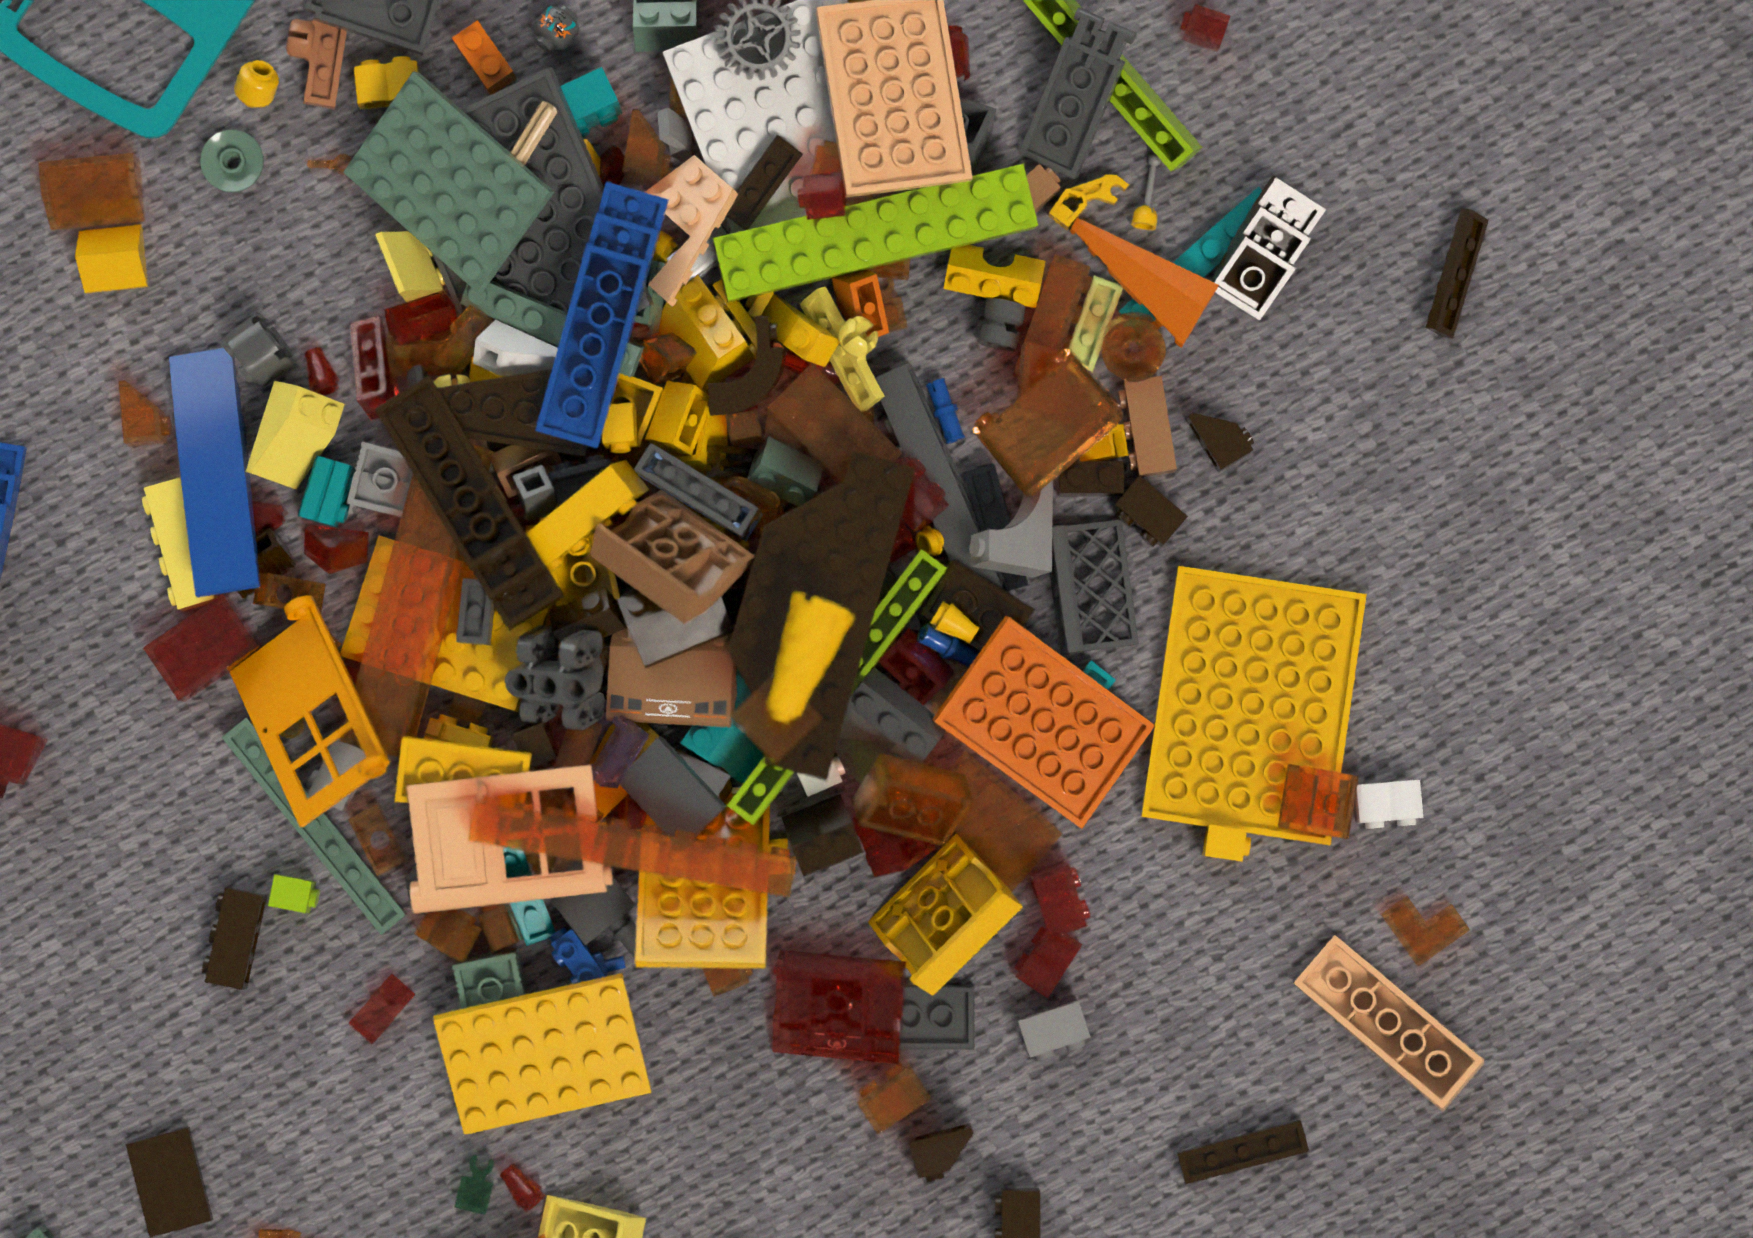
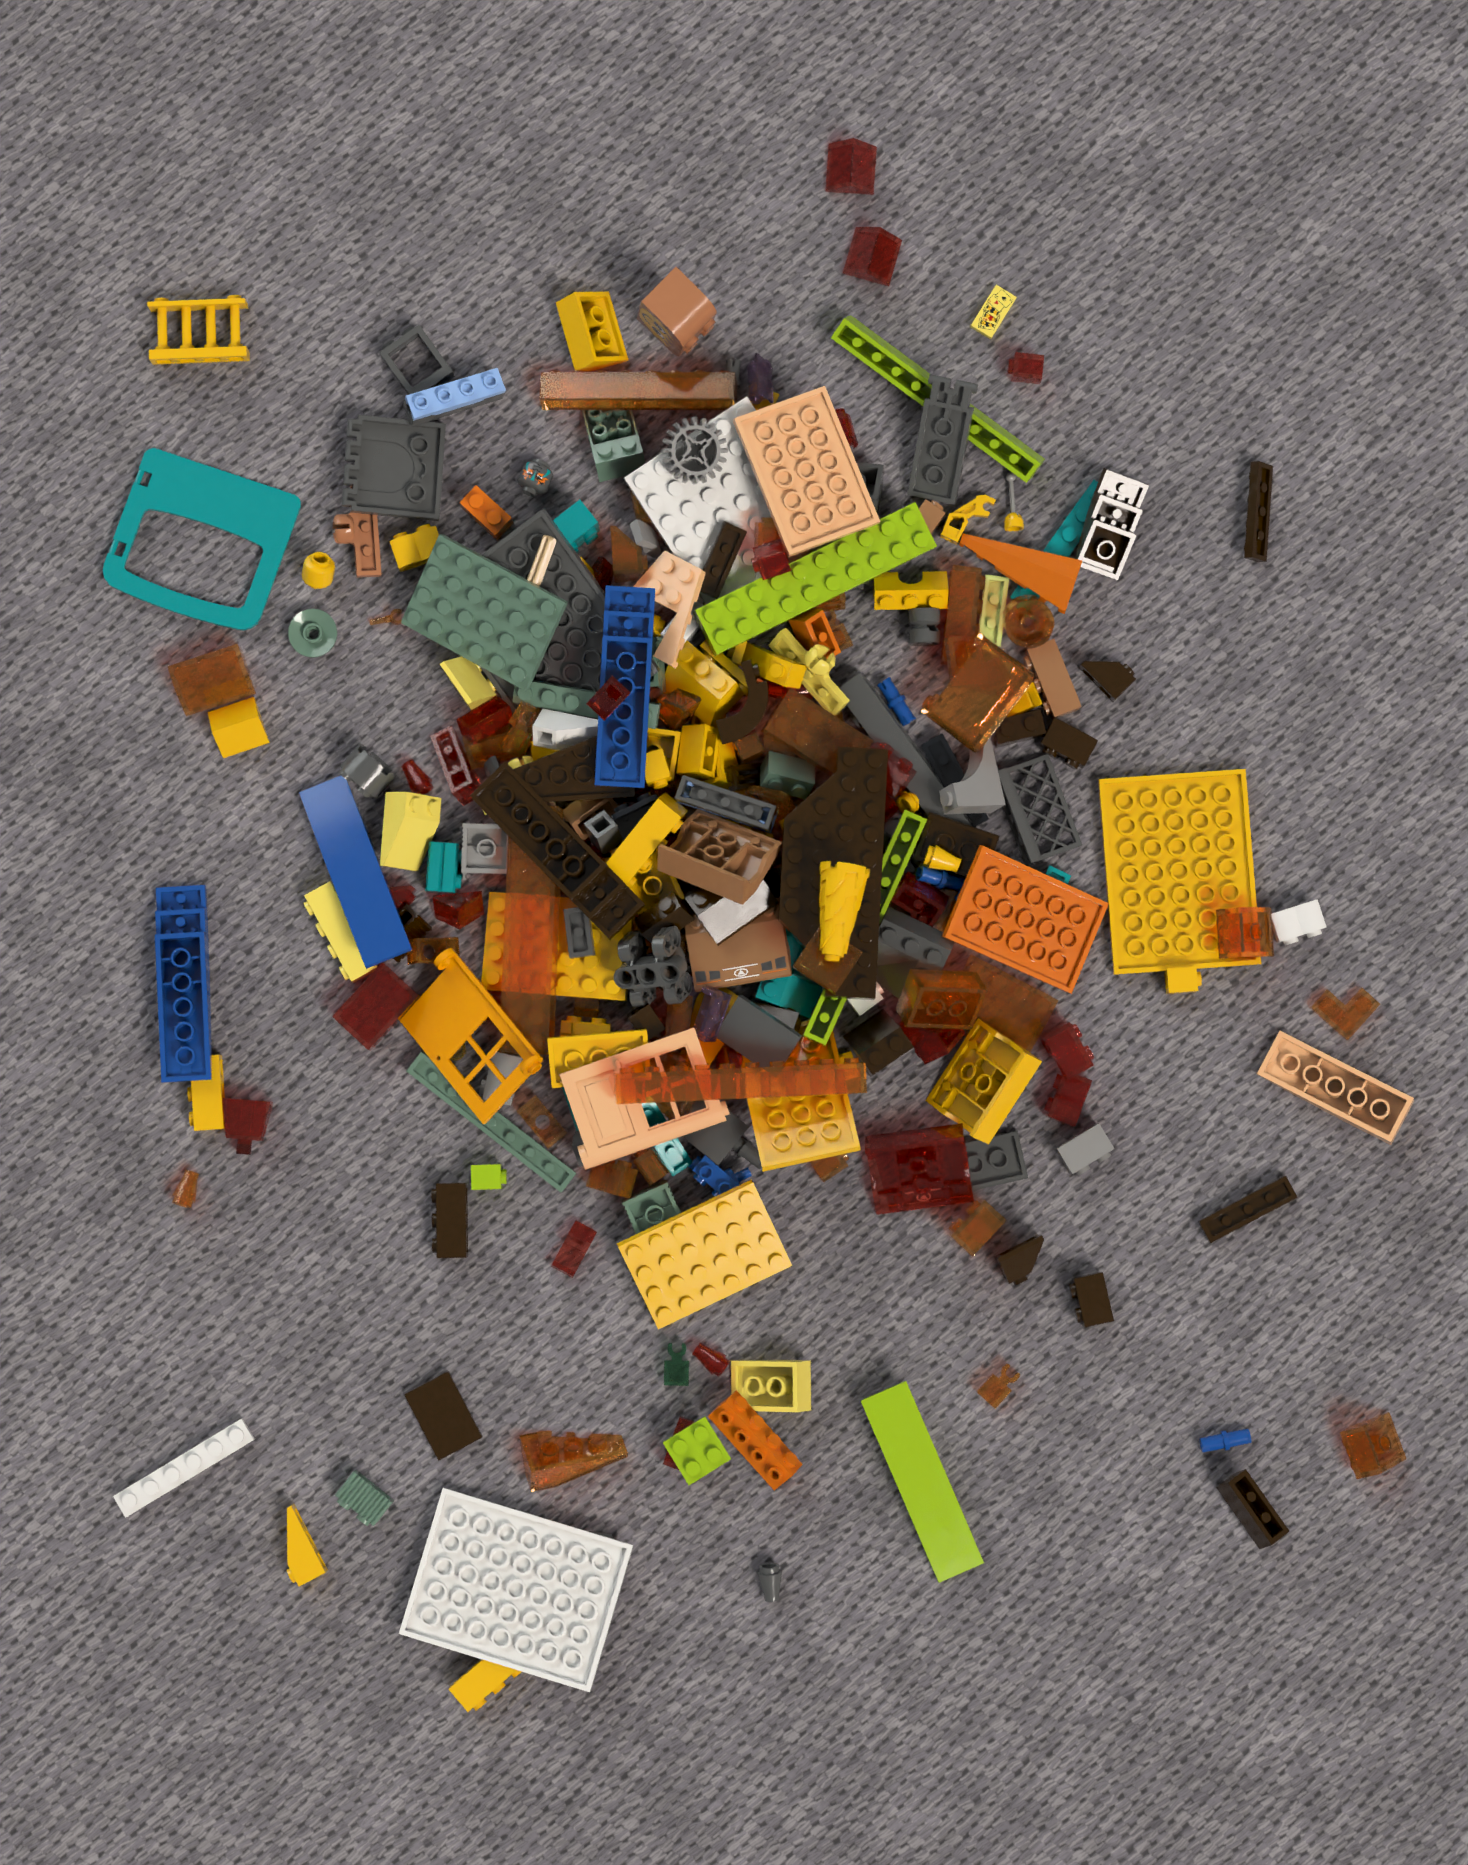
camera: 15 degrees left, 0 degrees up
(141, 419) = (289, 843): clear orange slope -> none
(576, 323) = (608, 697): none -> clear red slope

